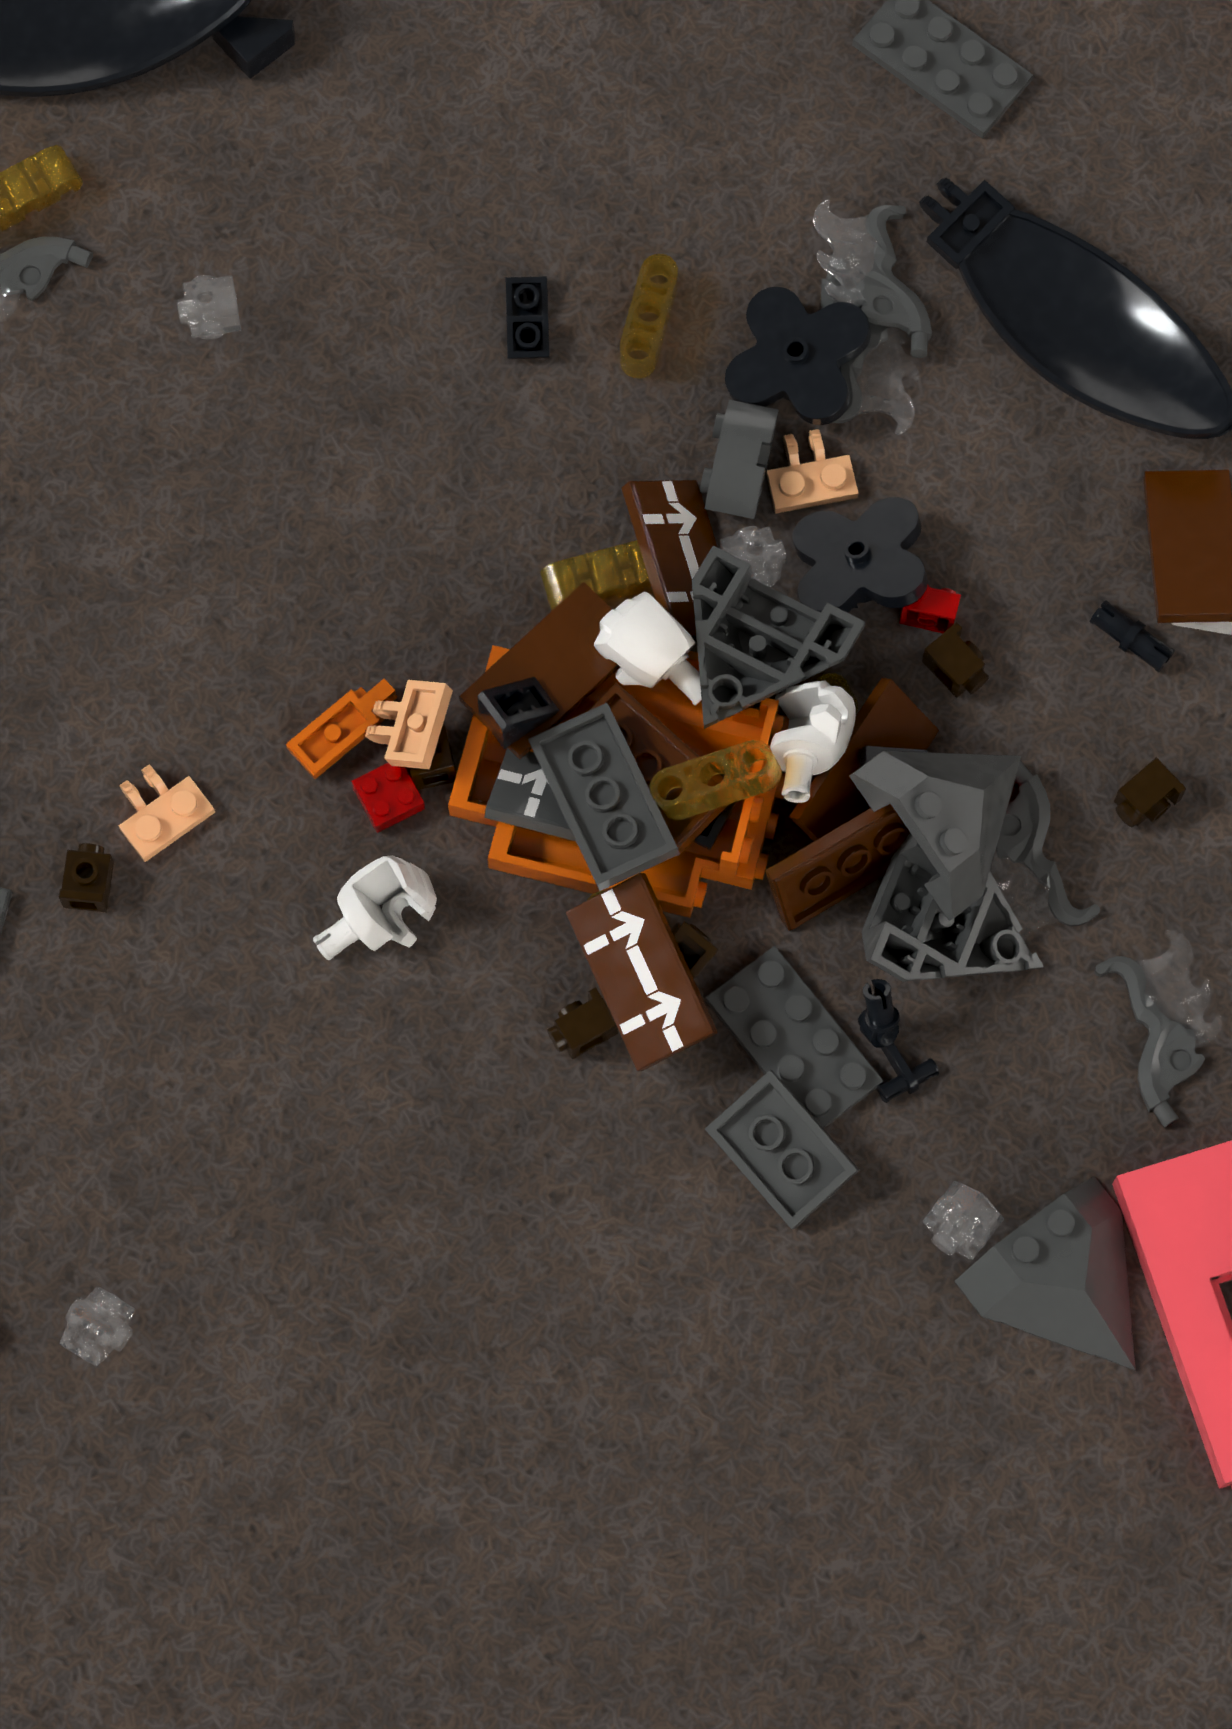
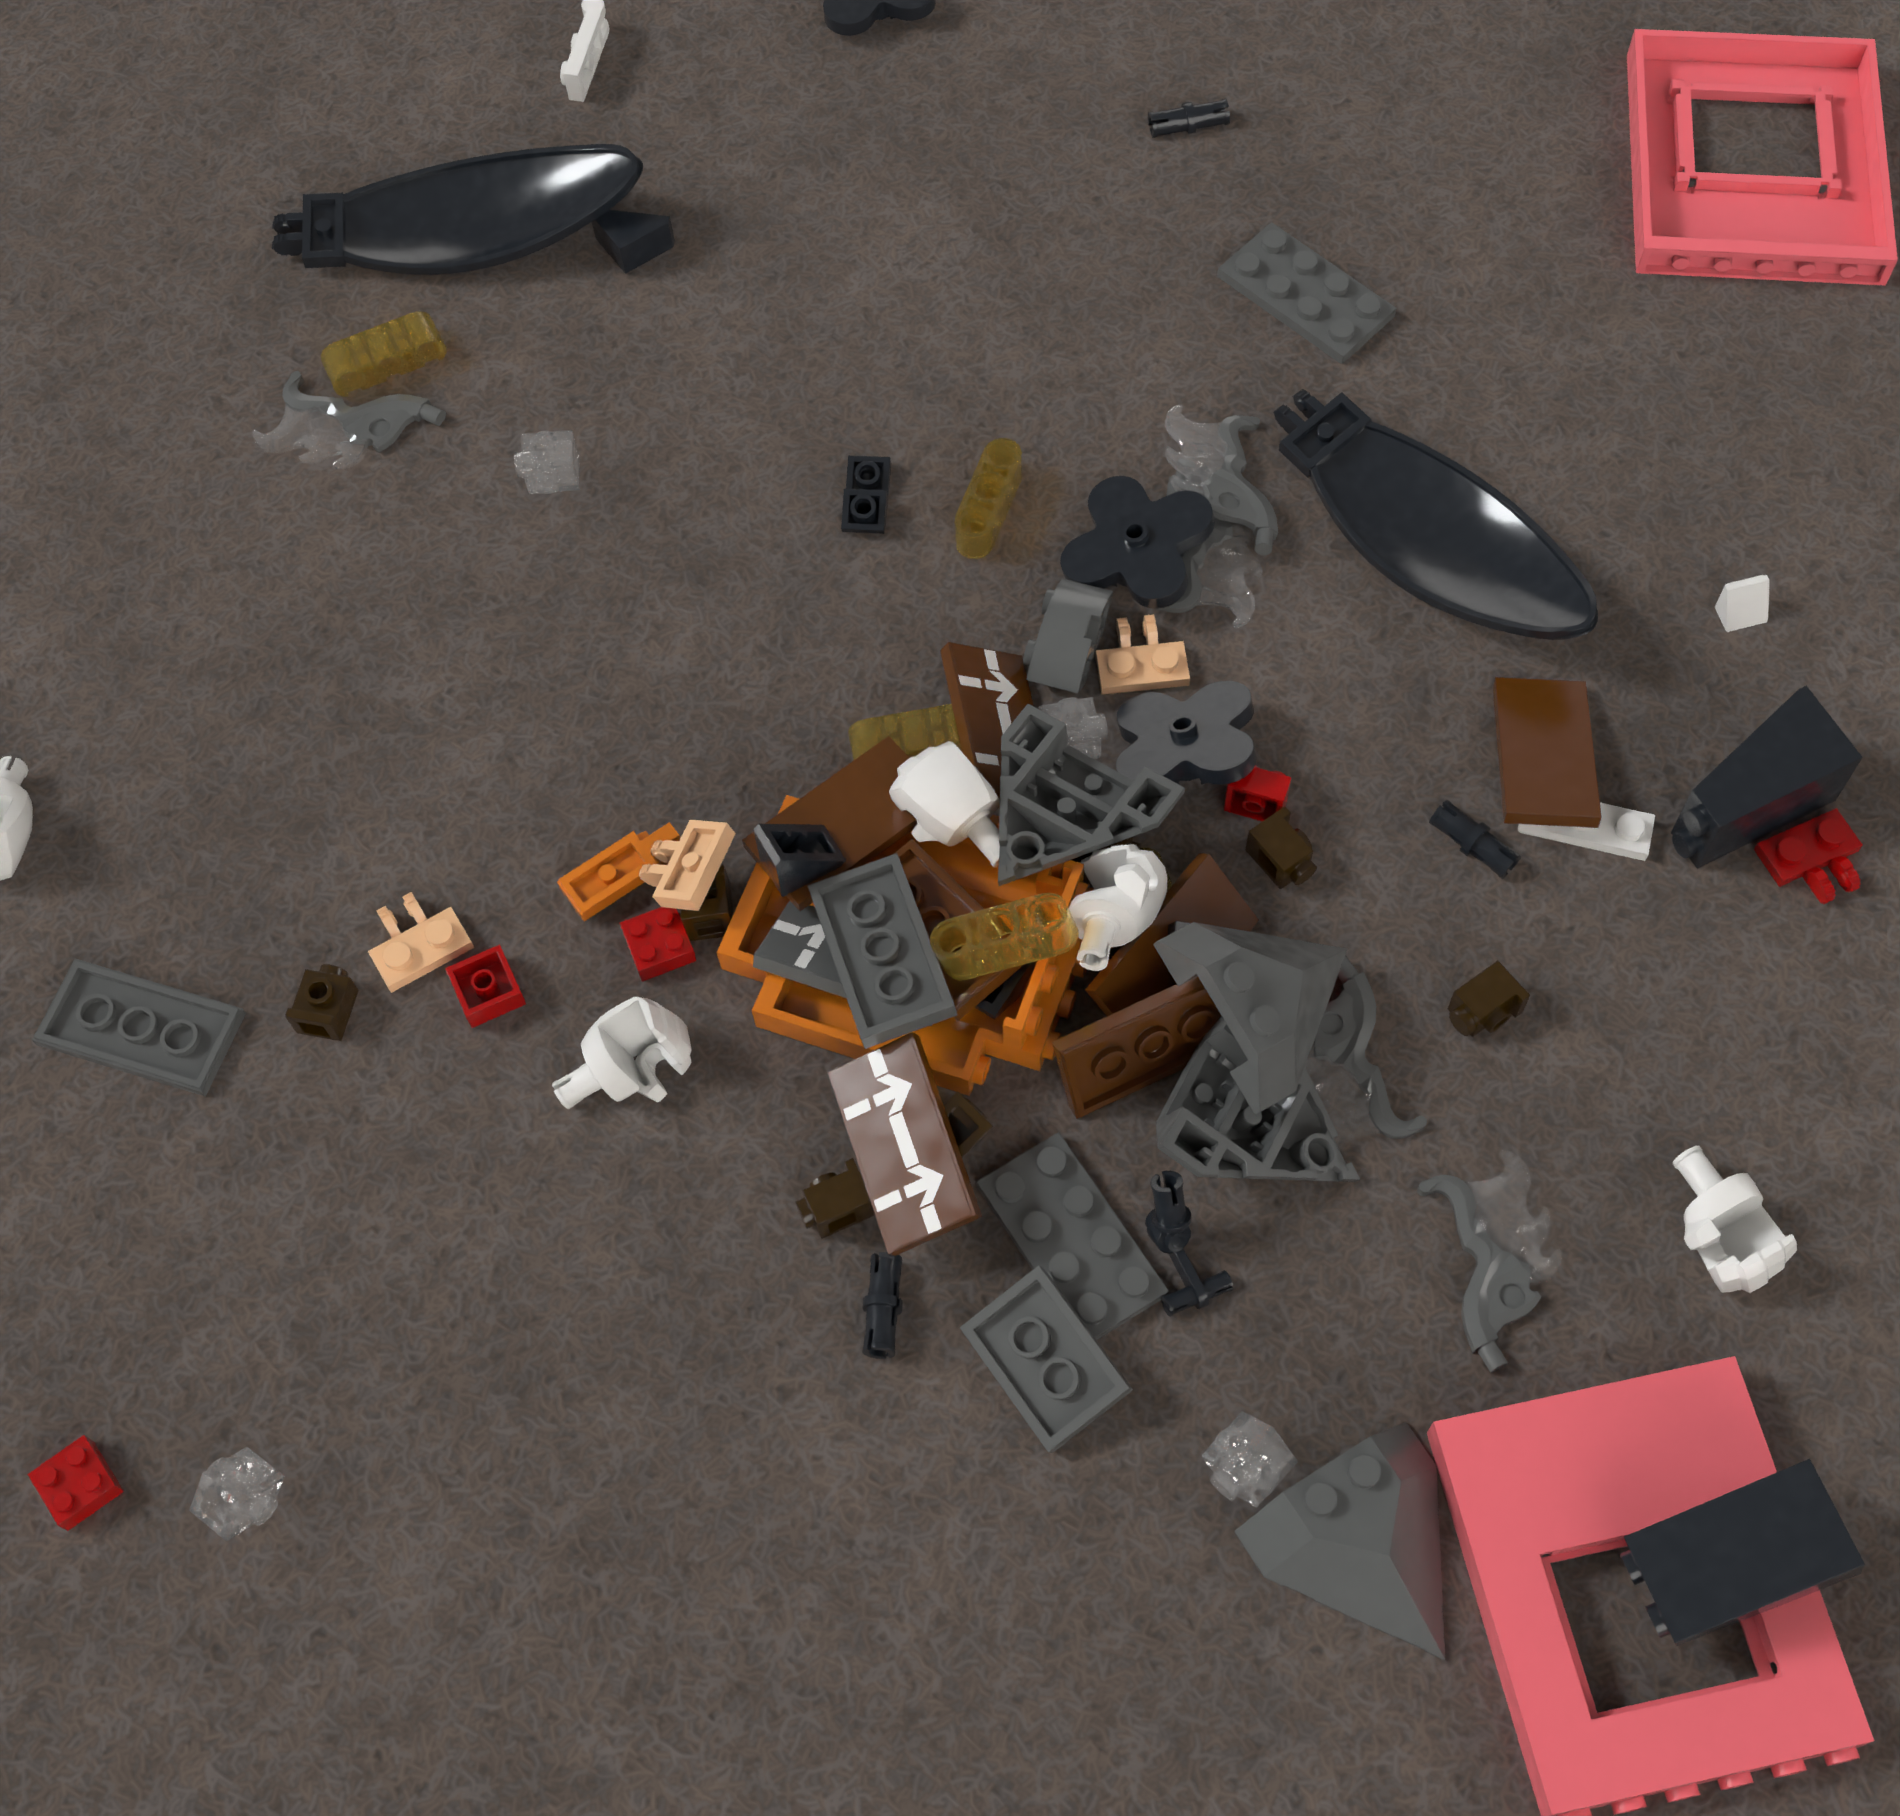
camera: 10 degrees right, 10 degrees down
(235, 850) = (485, 986): none -> red piece
(634, 1115) = (882, 1305): none -> black pin

